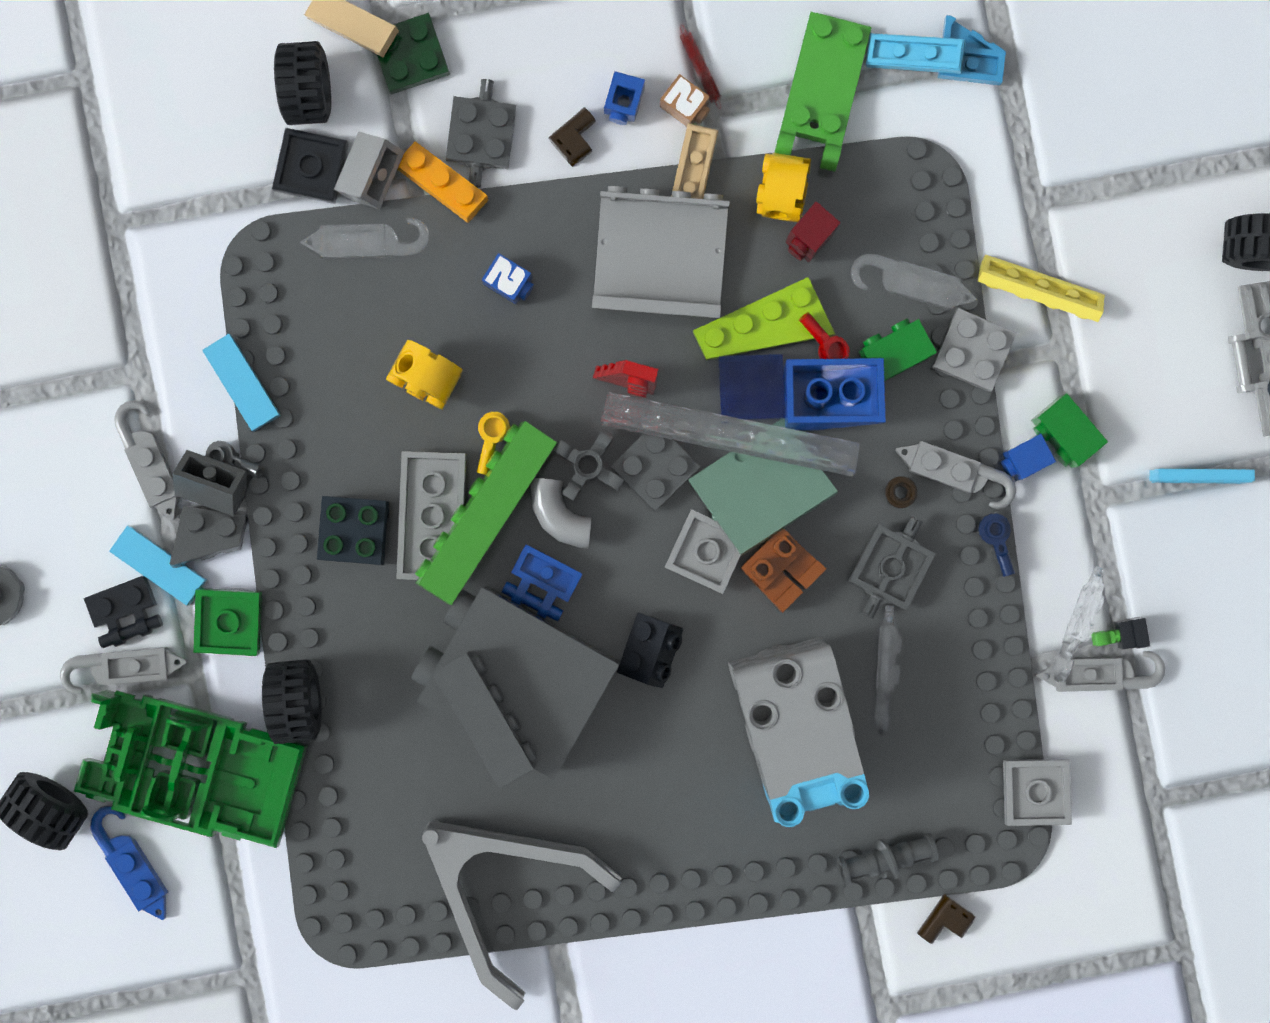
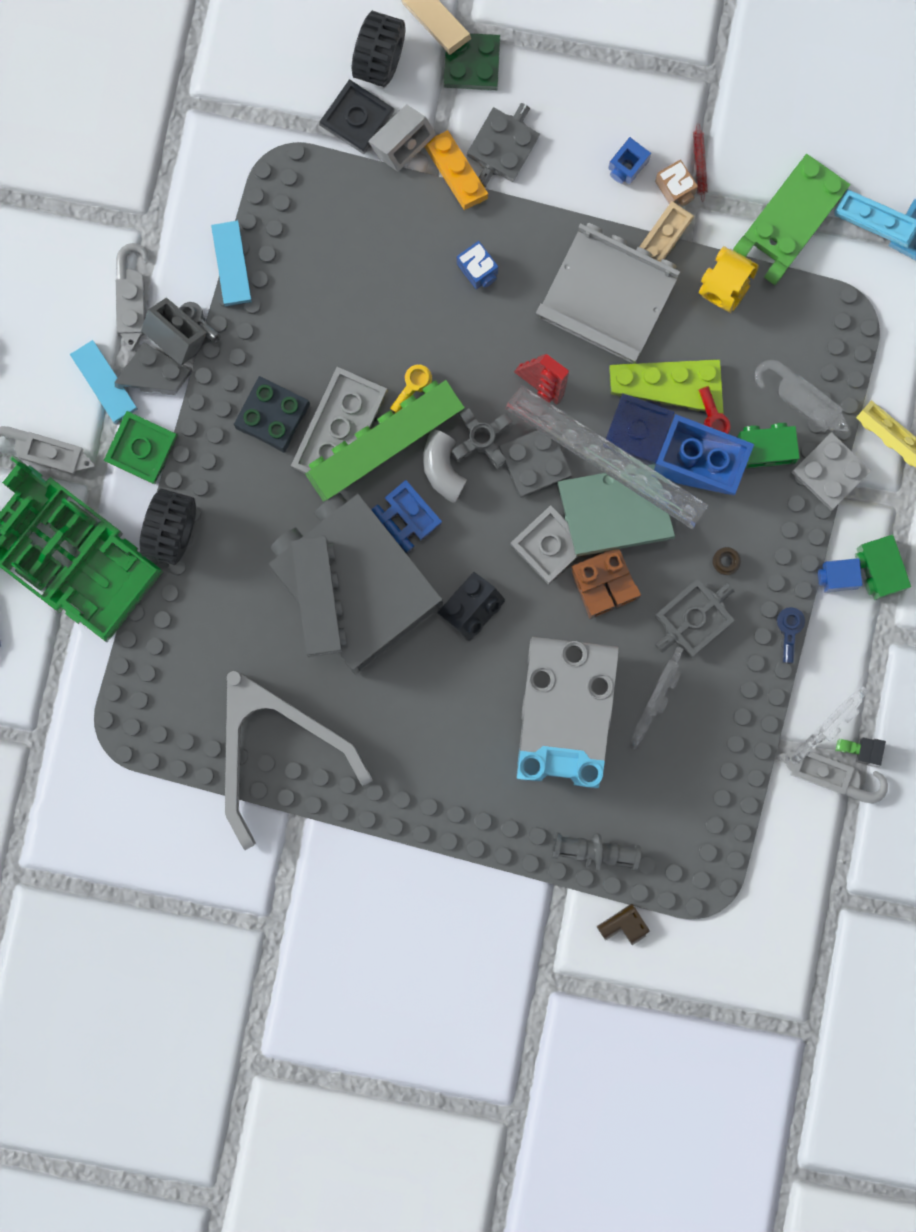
camera: 20 degrees right, 5 degrees down
(120, 602) = (60, 398): black plate -> none
(364, 241) = (375, 191): clear plate -> none
(424, 374) = (381, 312): yellow brick -> none
(569, 139) = (571, 177): dark brown piece -> none
(811, 233) = (736, 324): dark red brick -> none
(955, 470) = (777, 561): light grey plate -> none
(1037, 792) = (741, 848): light grey plate -> none

